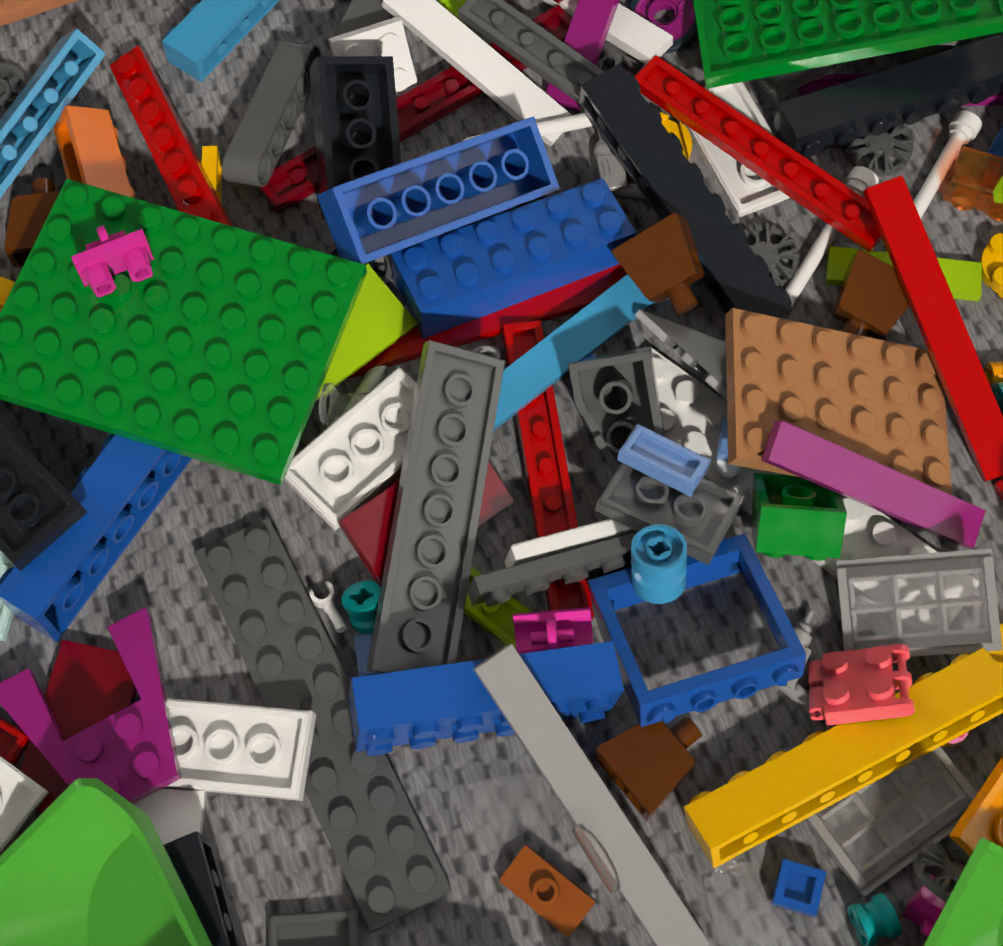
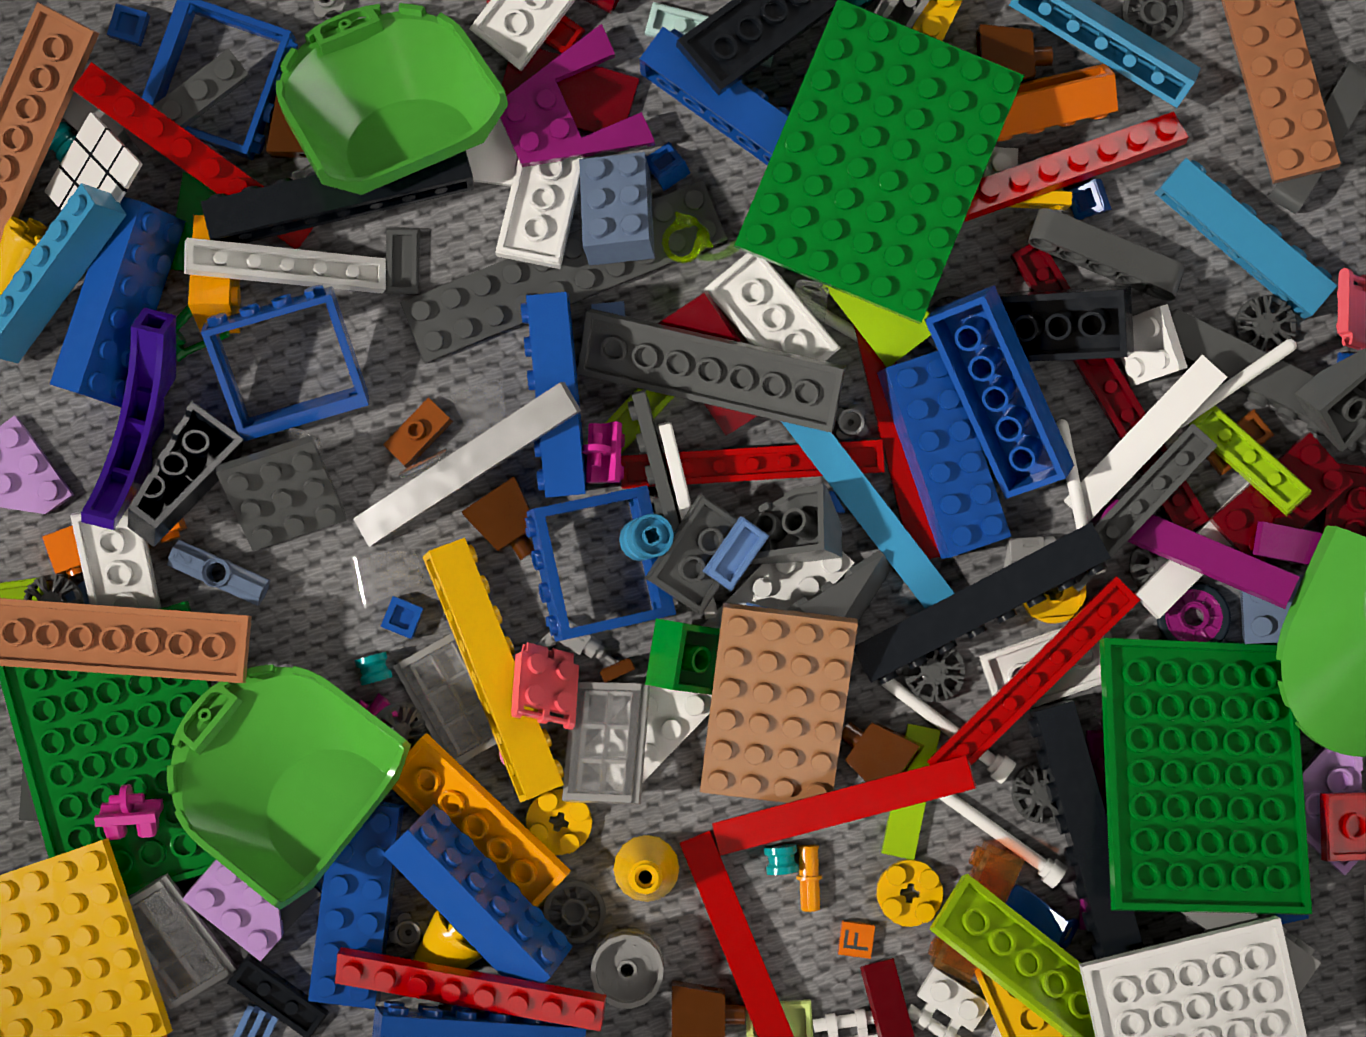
camera: 95 degrees right, 20 degrees up
(112, 256) = (924, 101): dark pink hips -> none
(179, 598) = (668, 168): none -> blue slope
(209, 135) = (1089, 199): none -> blue slope
(234, 643) = (616, 208): none -> sand blue brick
(274, 539) = (701, 242): none -> clear neon green piece
(329, 607) = (647, 284): white hand -> none
(361, 605) = (651, 302): teal wheel -> none
(663, 262) = (918, 577): reddish brown torso -> none
(820, 599) = (617, 669): none -> reddish brown tile
(873, 484) = (702, 720): magenta tile -> none

